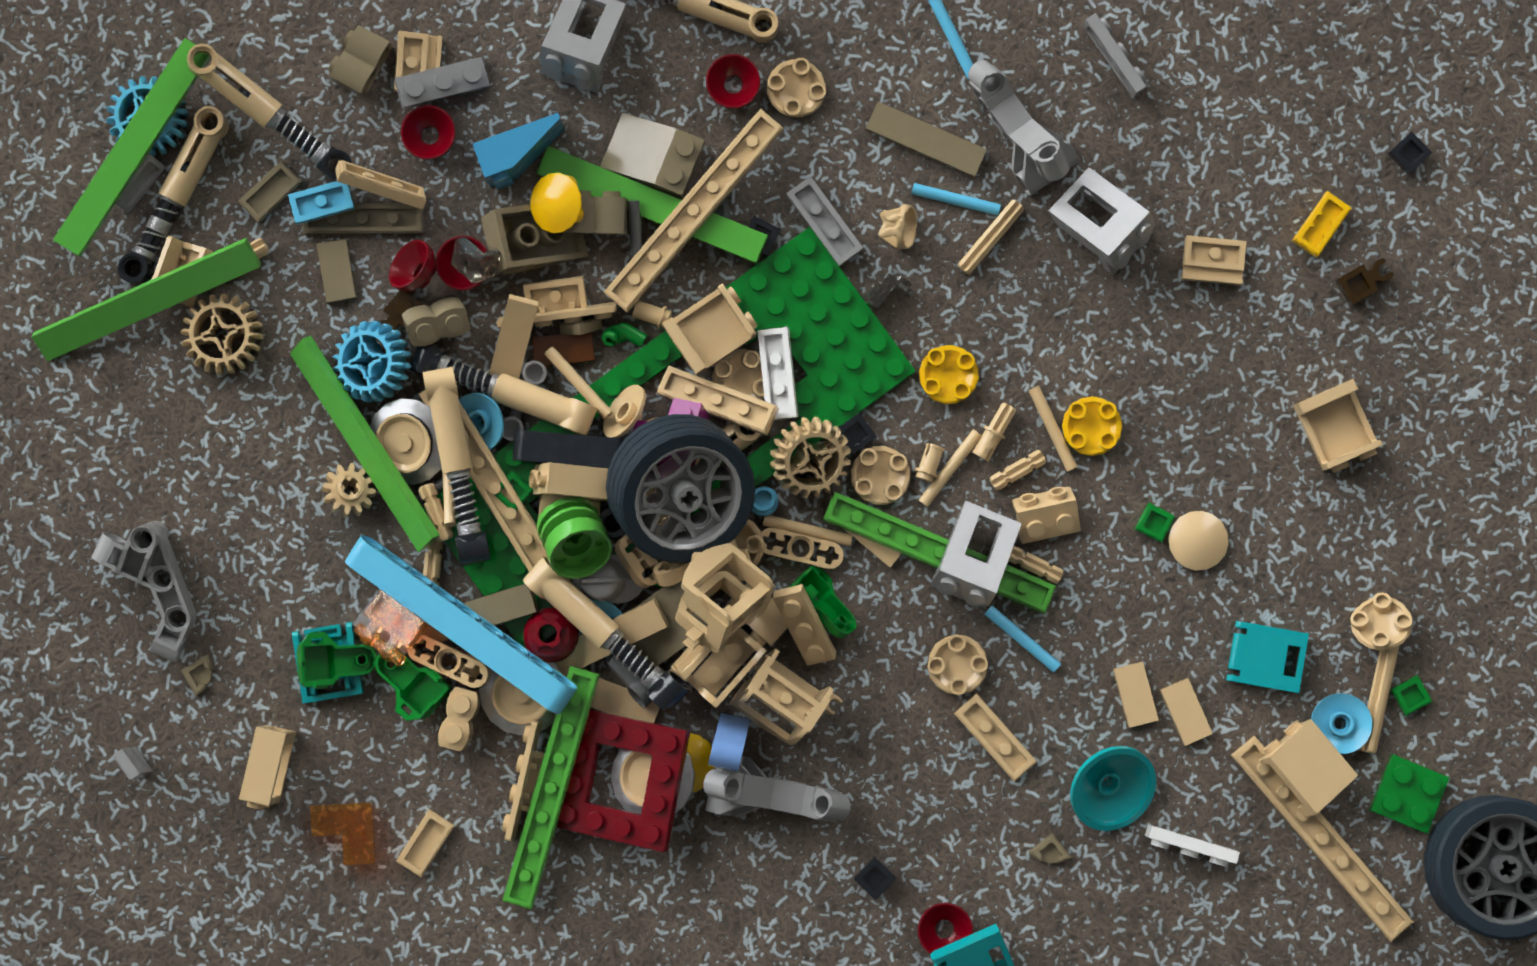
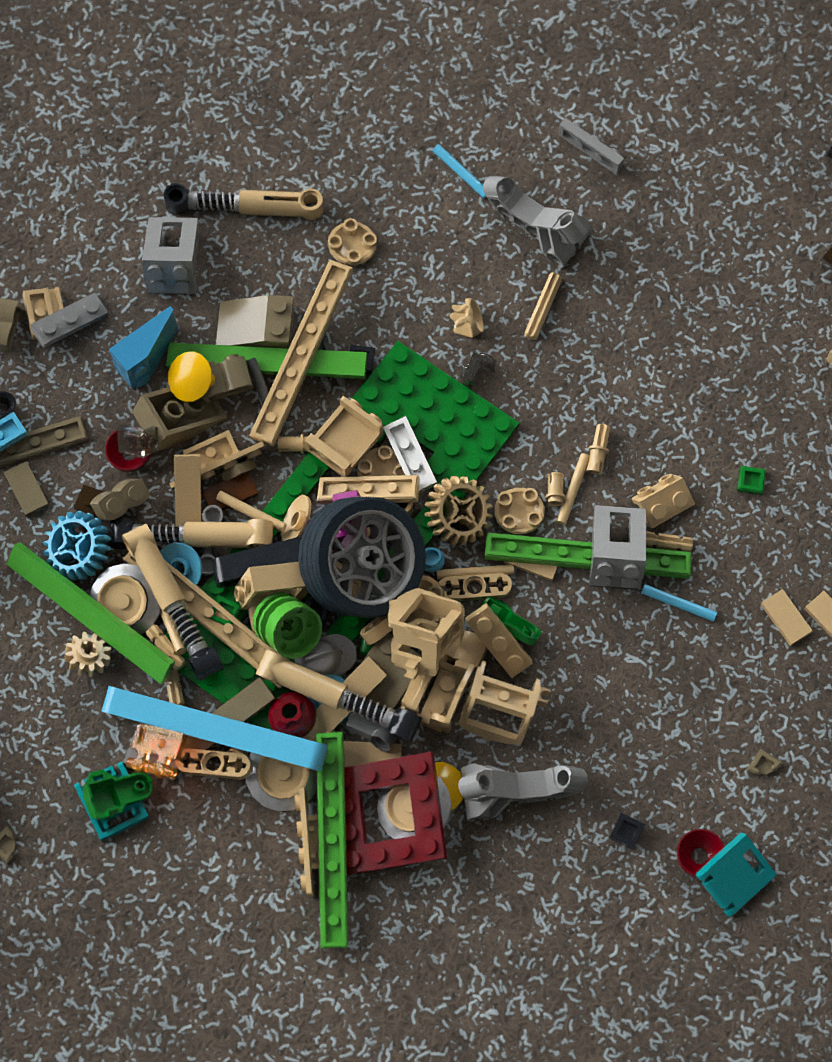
camera: 15 degrees left, 15 degrees down
(267, 766) = (86, 897): tan window -> none
(355, 825) = (169, 925): clear orange plate -> none
(380, 184) = (44, 407): tan tile -> none
(412, 266) = (88, 464): dark red piece -> none
(415, 687) = (193, 794): green piece -> none
(420, 119) = (69, 349): dark red piece -> none
(425, 843) = (239, 924): tan tile -> none
(457, 727) = (237, 803): tan brick -> none
(622, 332) = (275, 465): green arm -> none
(636, 562) = (344, 633): tan beam -> none
(729, 742) = (469, 752): medium blue beam -> none
(733, 66) = (300, 240): dark red piece -> none
(824, 221) = (408, 332): light grey plate -> none
(857, 433) = (491, 481): black plate -> none
(926, 139) = (466, 250): dark tan tile -> none
(948, 374) = (546, 417): yellow dish -> none
(956, 199) = (505, 287): medium azure bar -> none
(957, 664) = (634, 638): tan dish -> none
(995, 737) = (685, 687): tan tile -> none
(1017, 470) = (626, 475): tan axle -> none
(1053, 428) = (644, 434): tan bar -> none
(1092, 426) = (674, 421): yellow dish -> none
(1118, 799) = (807, 692): teal dish -> none
(1120, 236) = (642, 274): brick -> none
(1198, 540) = (791, 483): tan dish -> none
(1213, 260) = (723, 270): tan plate -> none
(1321, 224) = (796, 220): yellow plate -> none

